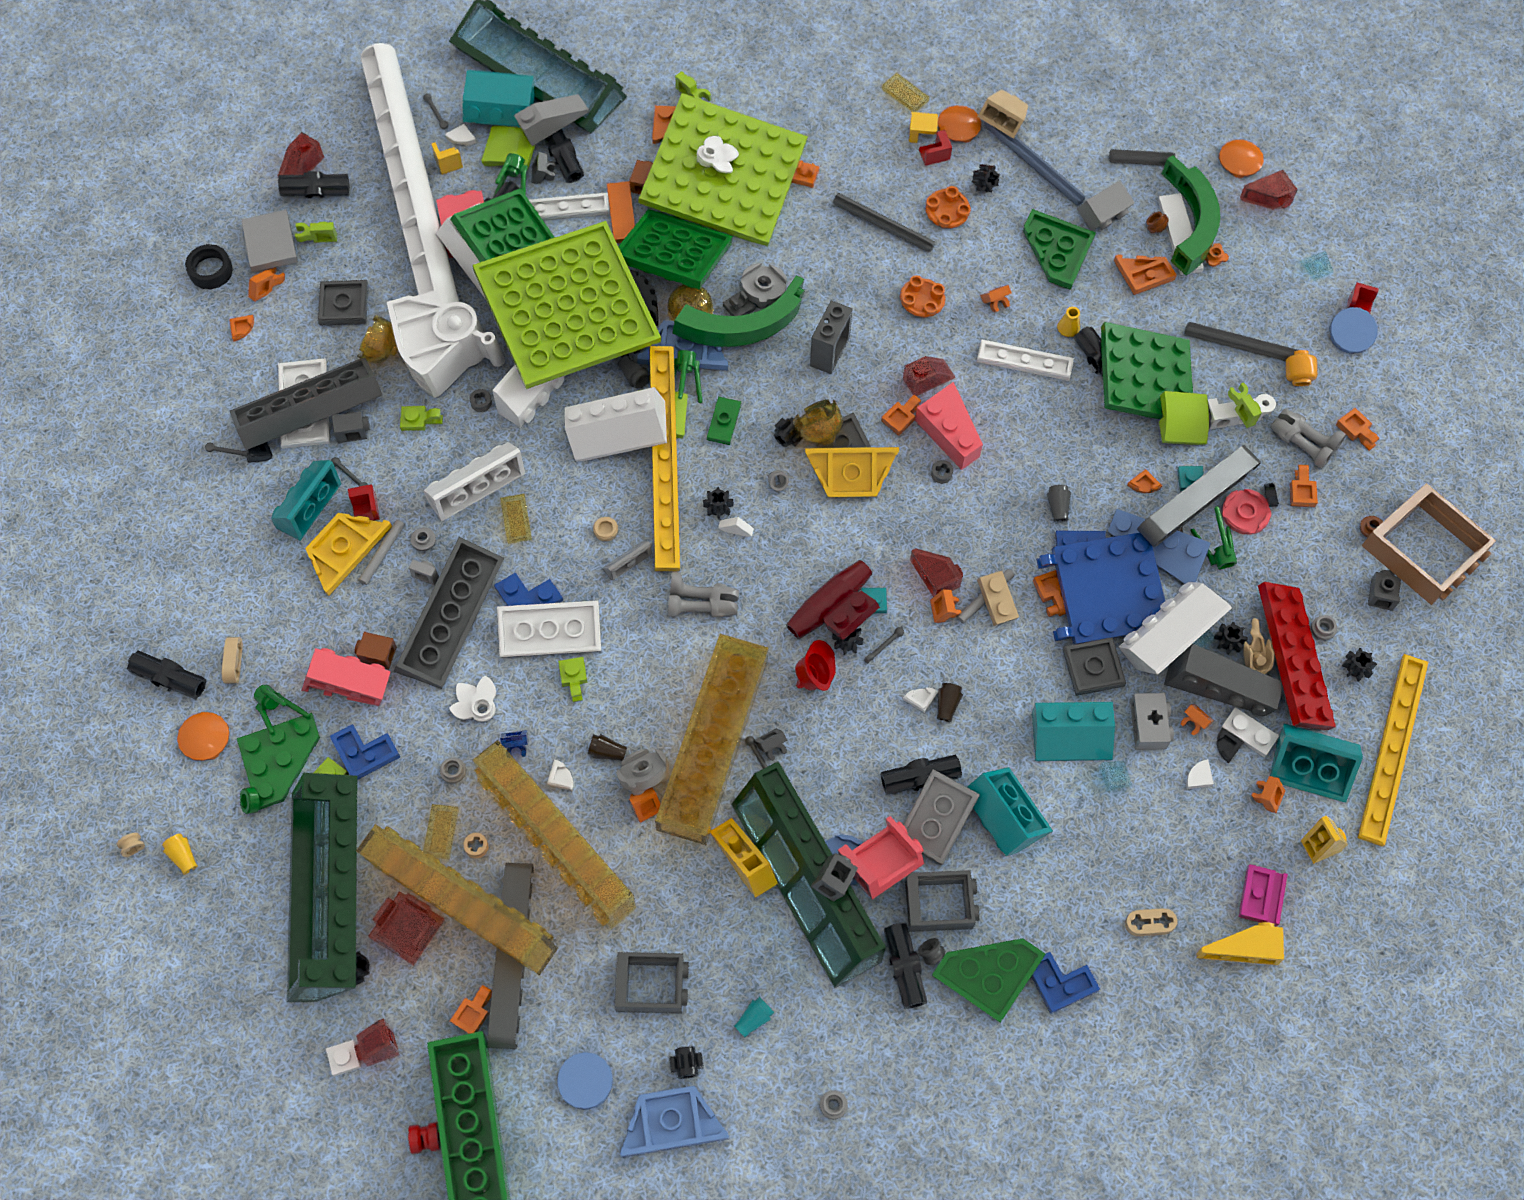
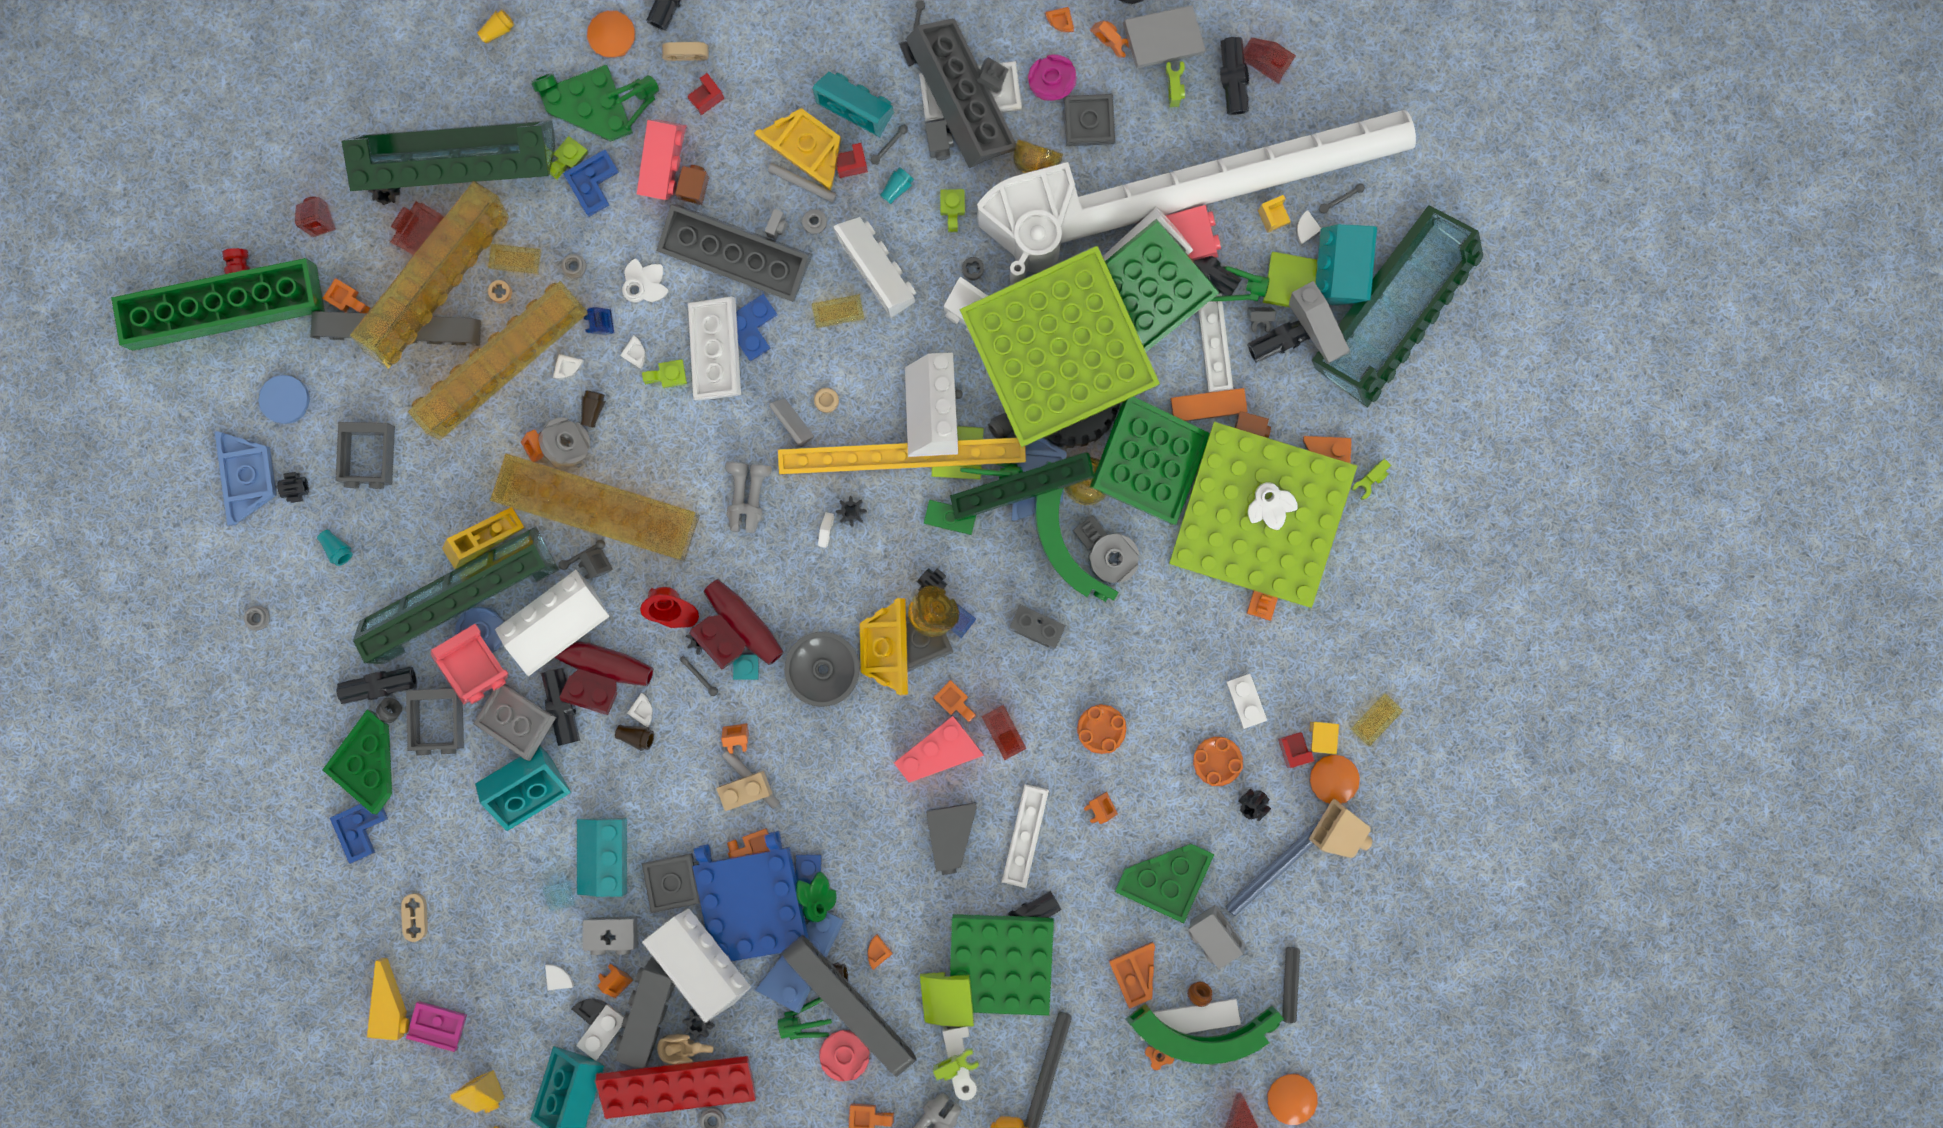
camera: 95 degrees right, 20 degrees up
(280, 640) = (706, 95): none -> red panel
(290, 374) = (992, 74): none -> dark grey tile
(298, 331) = (1052, 77): none -> dark pink tile
(343, 1058) = (309, 187): white plate -> none
(392, 464) = (897, 184): none -> teal cone
(549, 709) = (634, 352): none -> white tile
(698, 341) = (1022, 486): none -> dark green plate
(782, 477) = (873, 572): light grey hinge -> none
(834, 776) = (552, 622): none -> white slope
(835, 886) = (417, 621): dark grey brick -> none
(879, 511) = (803, 669): none -> dark grey dish
(884, 222) = (1198, 690): dark grey axle -> none
(886, 733) = (598, 670): none -> dark red plate
(892, 187) = (1246, 701): none -> white plate
(936, 571) = (771, 731): clear red slope -> none
(937, 466) = (896, 737): dark grey bush -> none
(1029, 417) = (950, 834): none -> dark grey slope
(1059, 501) = (853, 860): dark grey cone -> none
(1070, 322) = (1063, 879): yellow cone -> none
(1099, 529) = (816, 896): none -> green plate
(1188, 475) = (883, 1000): teal plate -> none
(1271, 494) = (857, 1083): black tile -> none
(1271, 795) = (535, 1046): orange tile -> none

